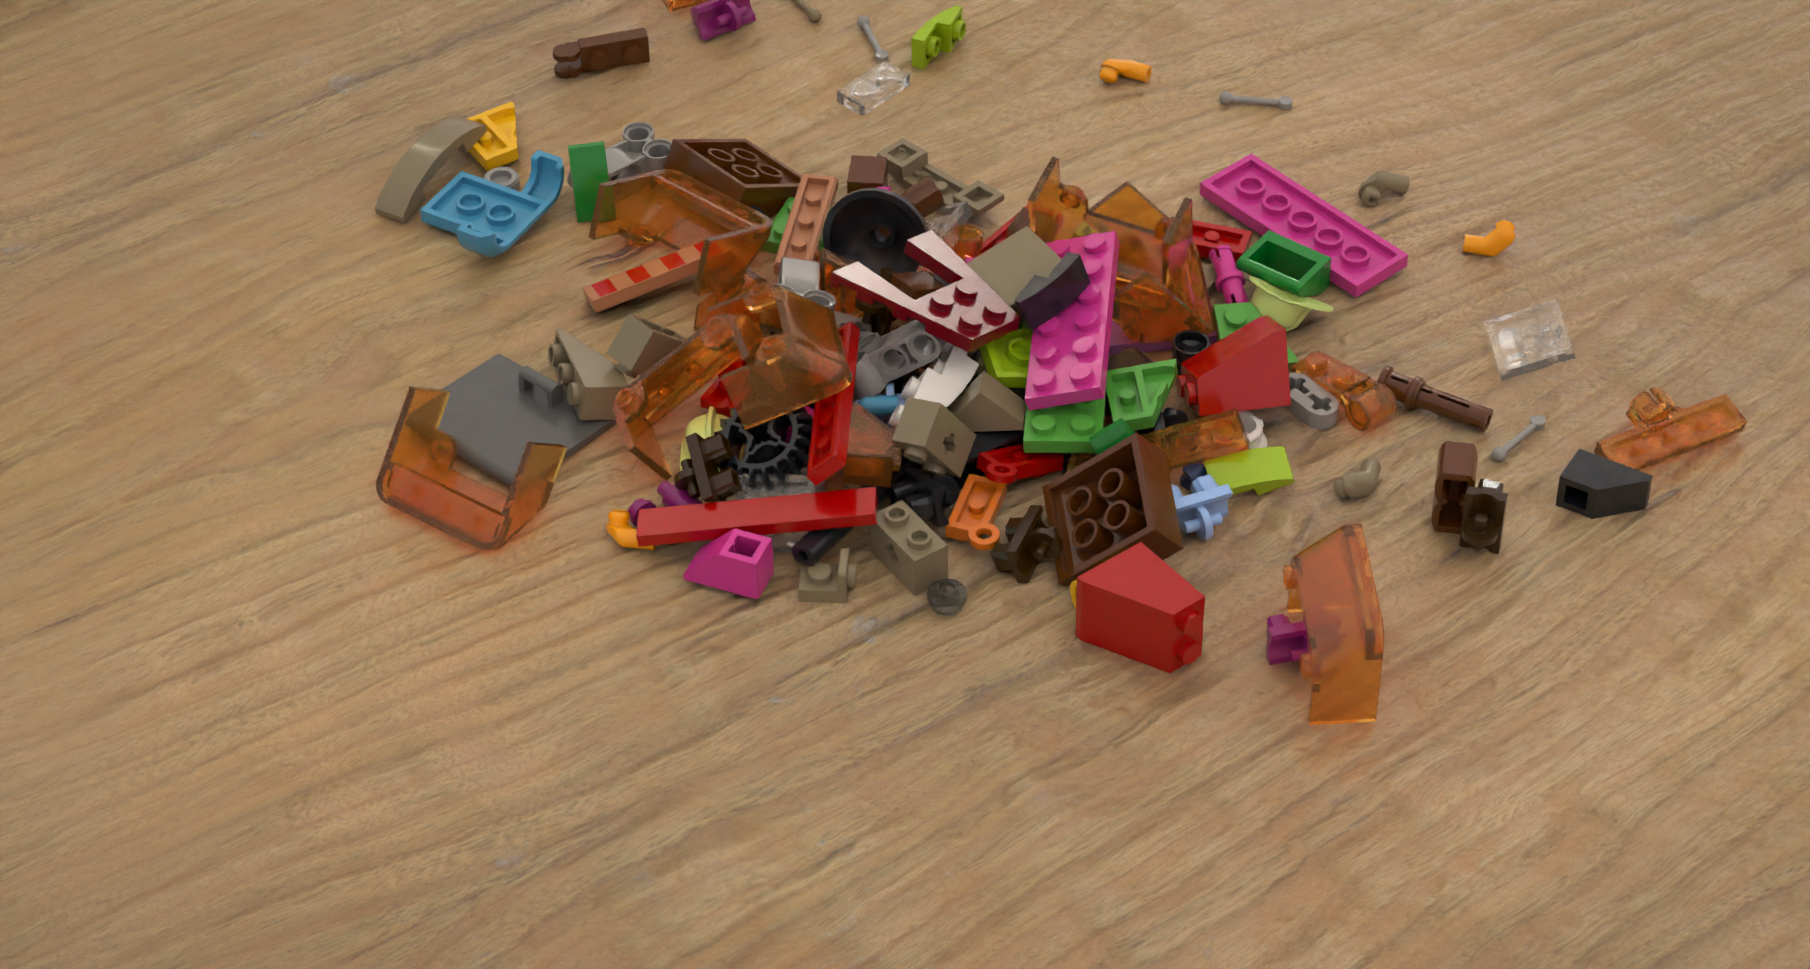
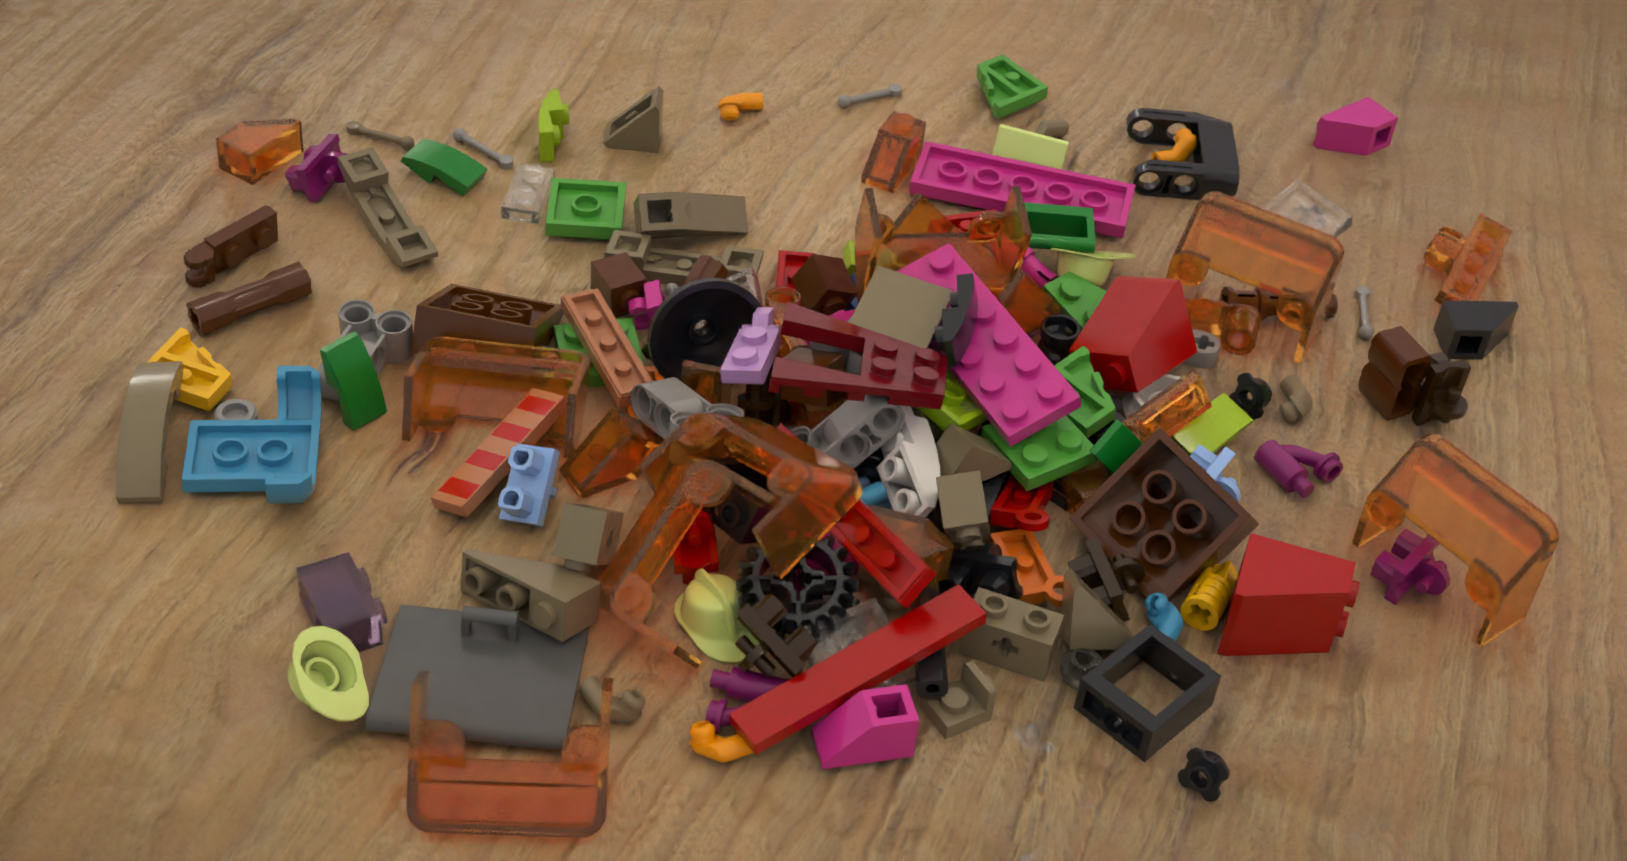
camera: 40 degrees left, 0 degrees up
(396, 367) = (328, 674): none -> yellowish green piece
(452, 335) = (340, 598): none -> brick
(556, 98) = (222, 308): none -> reddish brown axle
(576, 476) = (624, 708): none -> dark tan arm
(655, 298) = (529, 484): none -> light blue hips
(741, 61) = (383, 211): none -> dark tan slope
(825, 43) = (434, 160): none -> green slope
(887, 258) = (752, 350): none -> lavender hinge
(903, 113) = (585, 208): none -> bright green plate
(958, 701) = (1212, 766): none -> black plate
(976, 147) = (689, 215): none -> dark tan slope
(976, 654) = (1140, 729): none -> black window
(980, 560) = (1088, 619): none -> dark tan slope
(1016, 62) = (638, 126): none -> dark tan slope
(1051, 594) = (1164, 615): none -> dark azure arm
(1212, 151) = (894, 151): none -> clear orange slope
(1282, 523) = (1284, 466): none -> magenta plant
(1317, 460) = (1260, 393): none -> black plate
(1343, 193) = (1030, 147): none -> yellowish green slope
(1389, 132) = (1008, 86): none -> bright green wing
(1415, 350) = (1263, 252): none -> clear orange windscreen
(1510, 264) = (1214, 157): none -> black connector
(1697, 279) = (1356, 128): none -> dark pink slope

